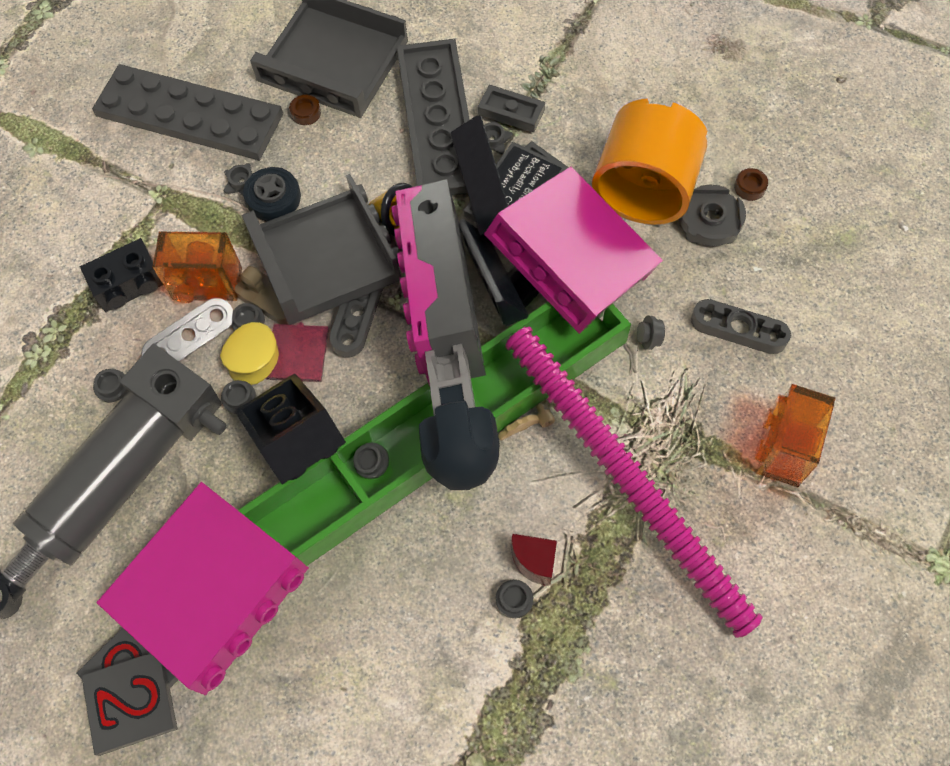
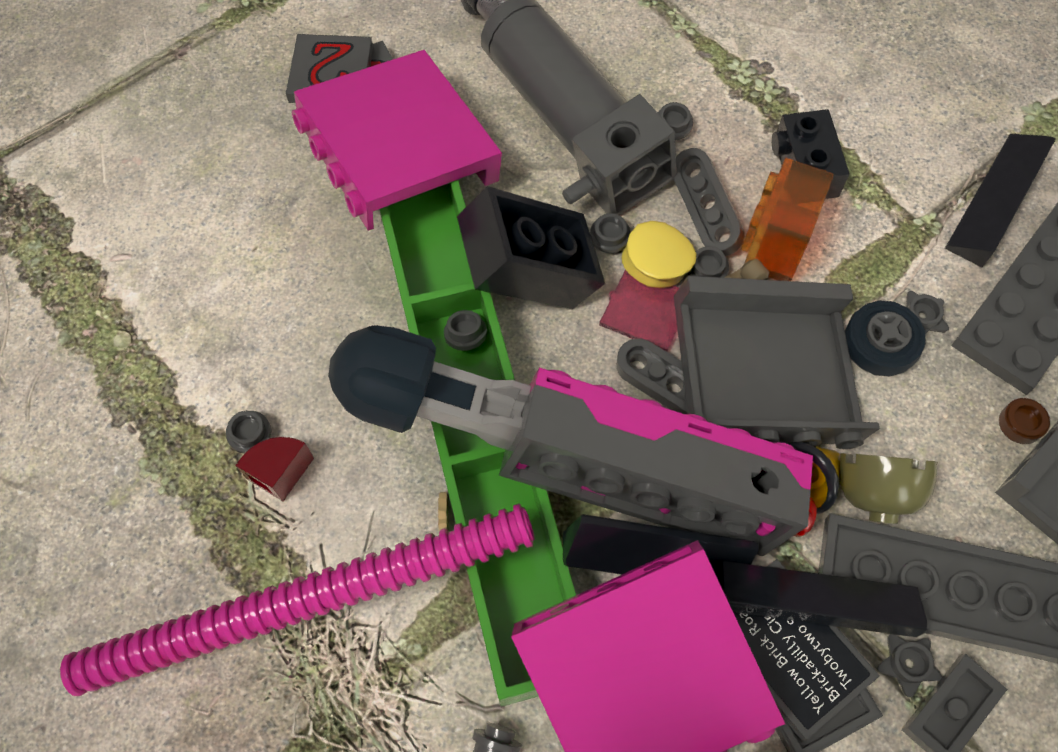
camera: 110 degrees right, 0 degrees up
(124, 150) = (999, 197): none -> black slope
(384, 163) = (886, 485): none -> olive cylinder

